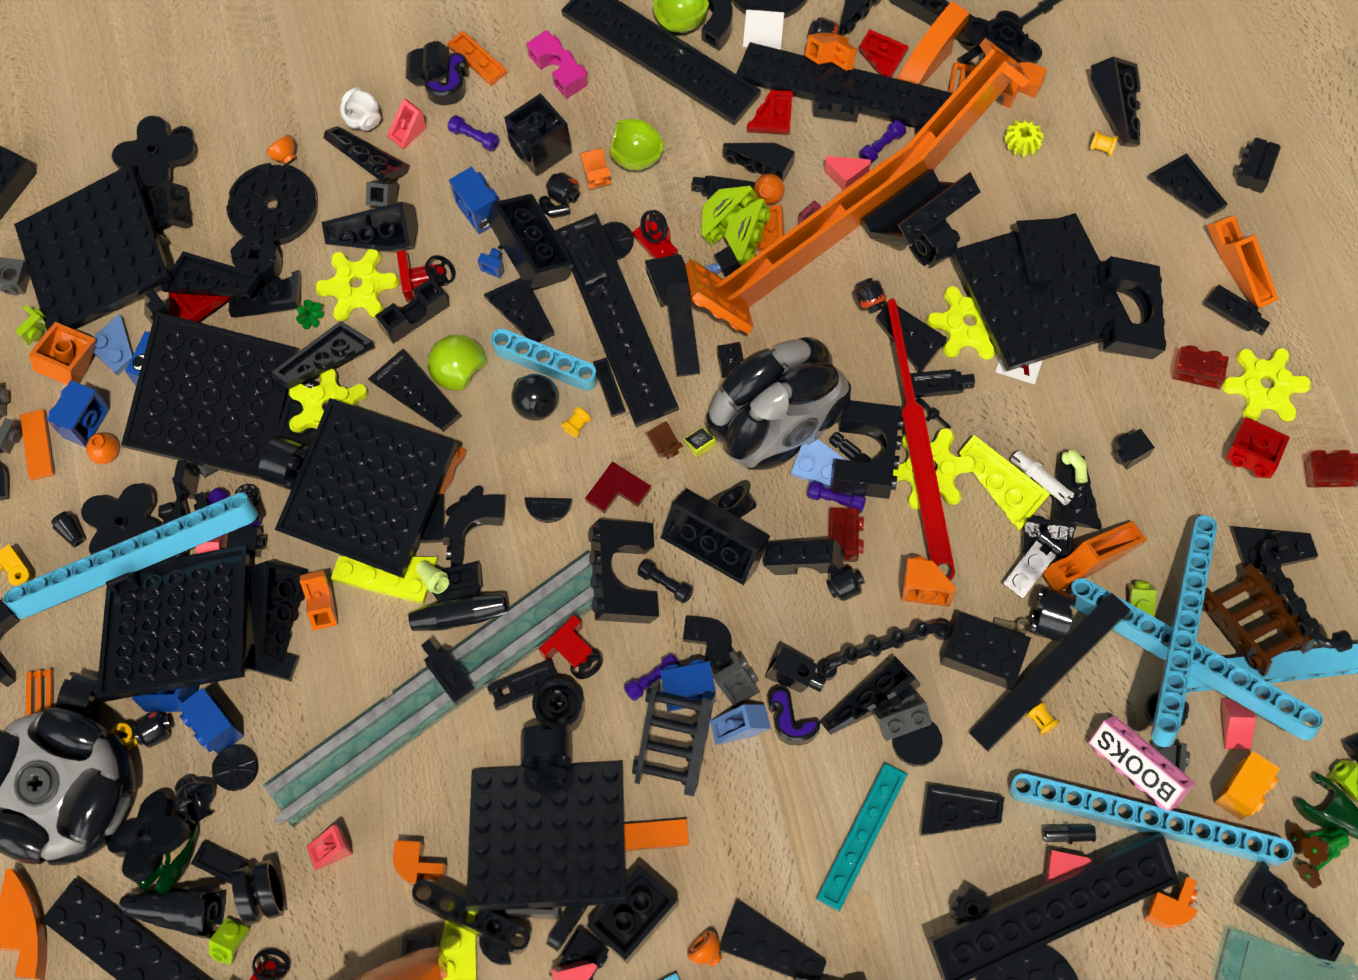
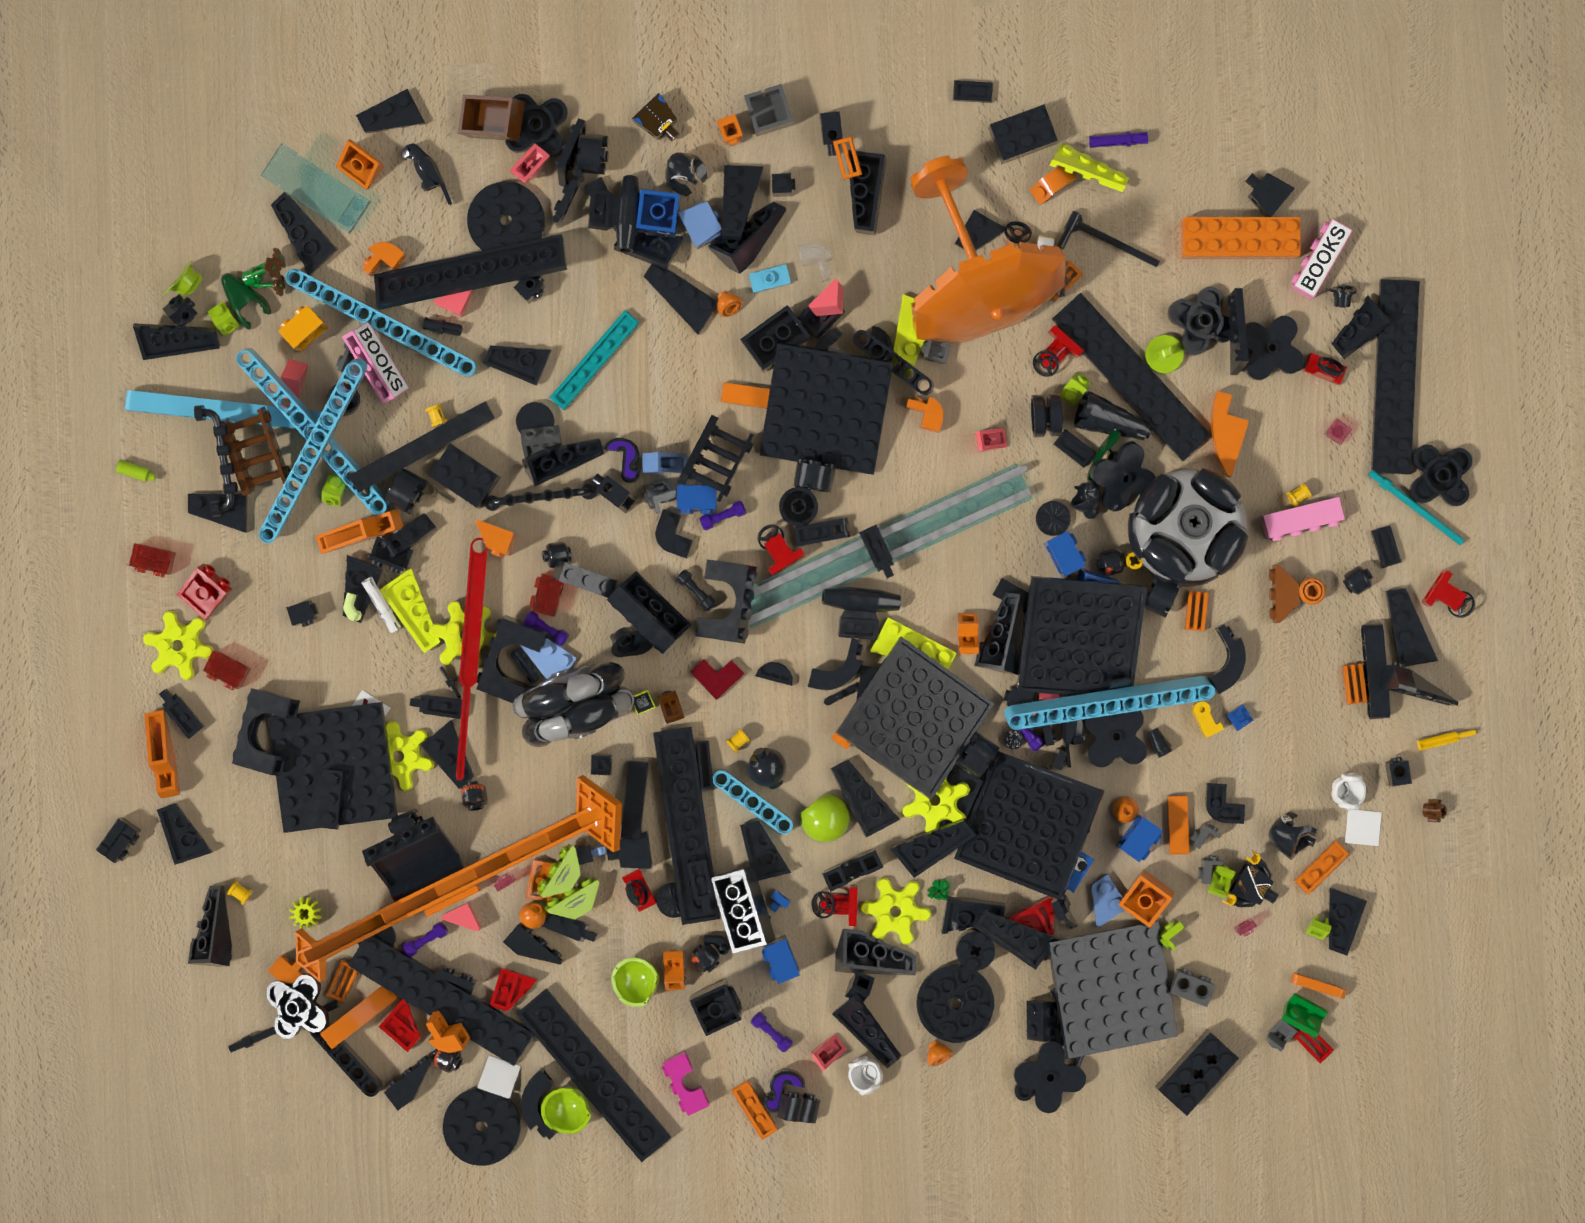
camera: 170 degrees left, 20 degrees up
(433, 578) = (875, 630): yellowish green cone -> none

